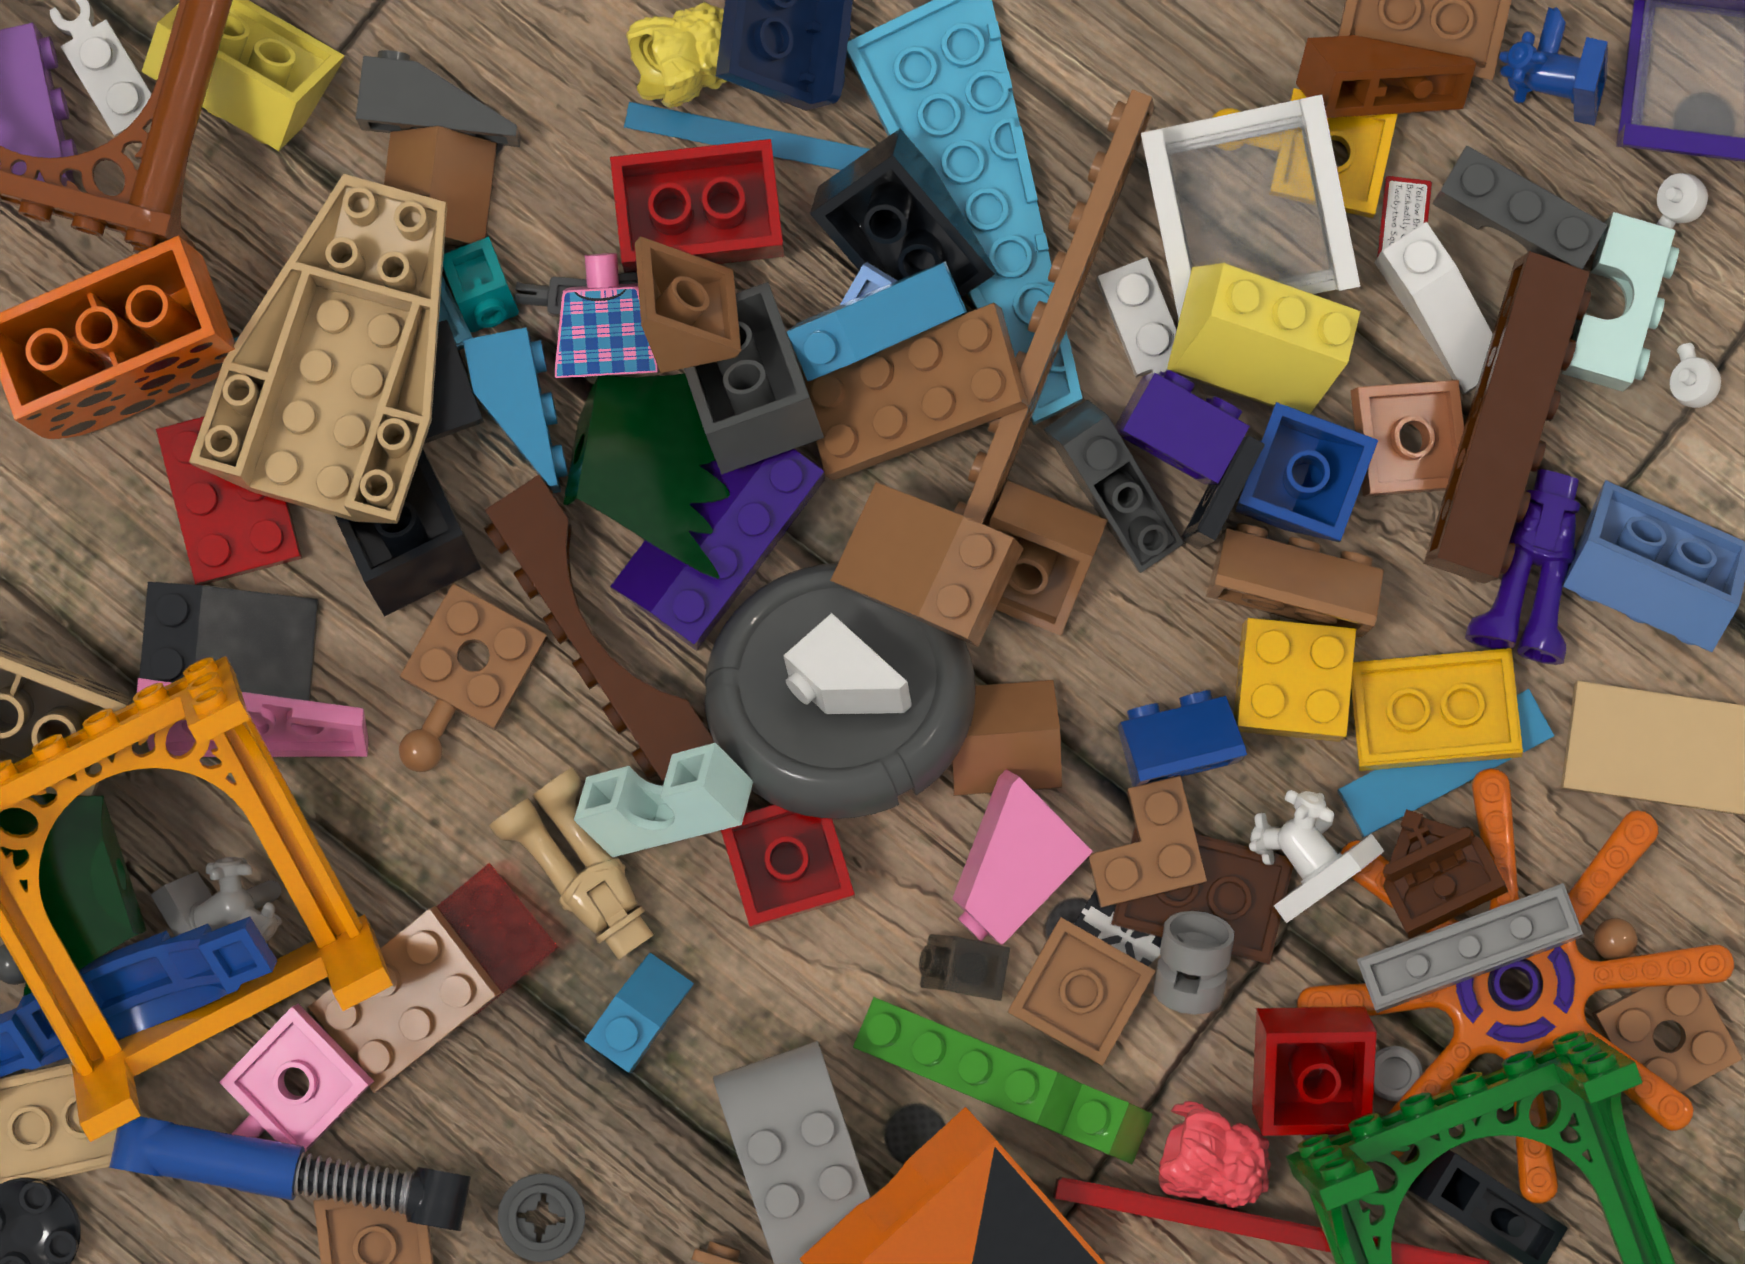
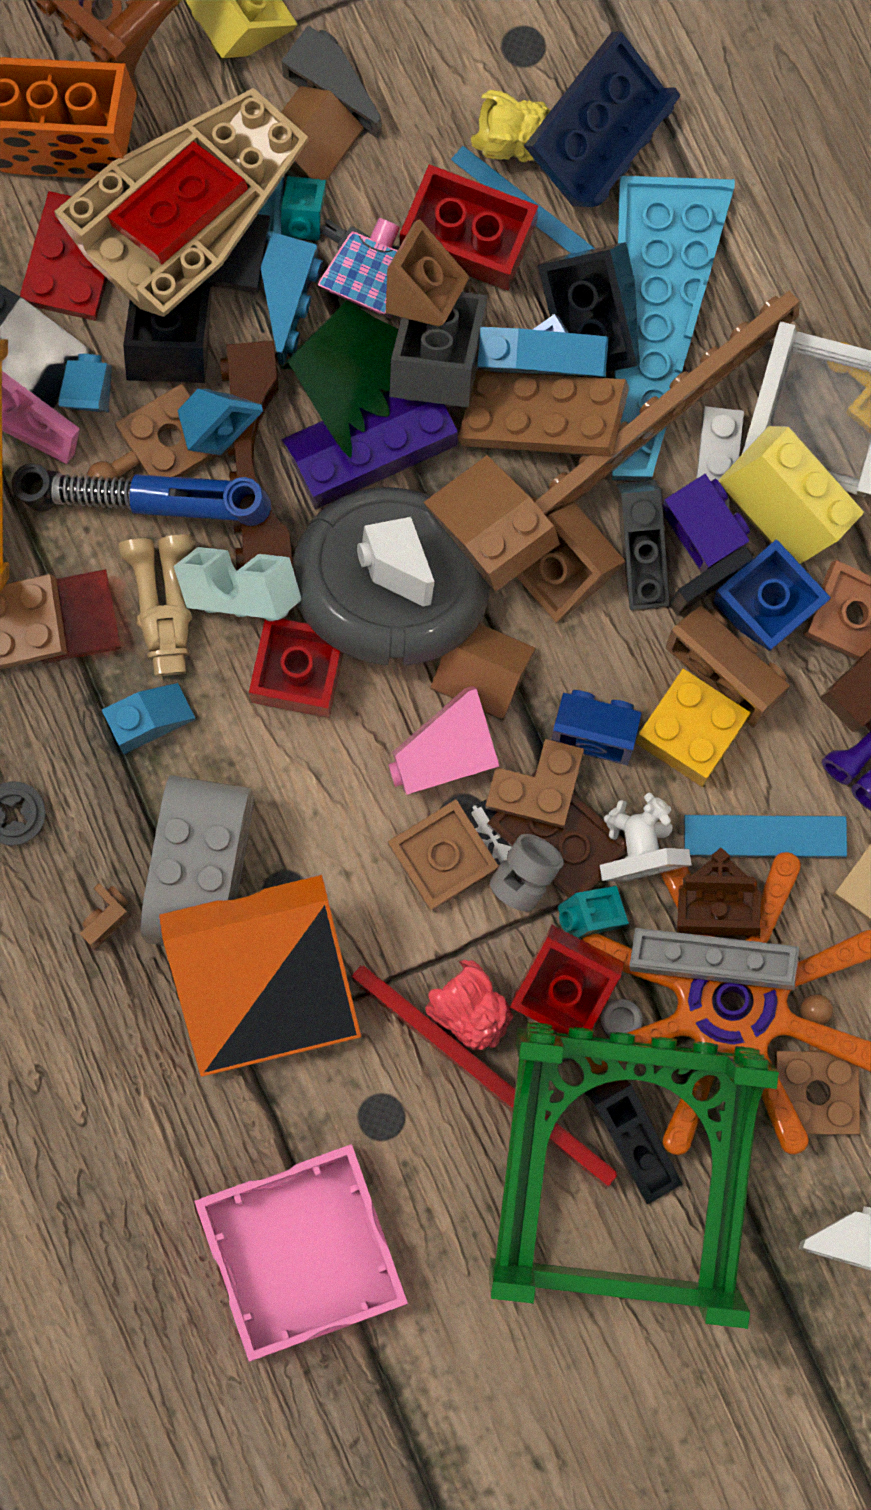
camera: 30 degrees right, 5 degrees down
(334, 370) = (177, 202): none -> red plate
(342, 651) = (86, 384): none -> dark azure slope
(488, 749) = (145, 494): none -> piece
(524, 611) = (215, 420): none -> dark azure slope
(964, 966) = (376, 798): clear smoke bracket -> none
(1003, 1080) = (362, 885): bright green arch -> none
(1293, 966) = (592, 912): none -> teal bracket
(1435, 709) = (776, 797): yellow tile -> none

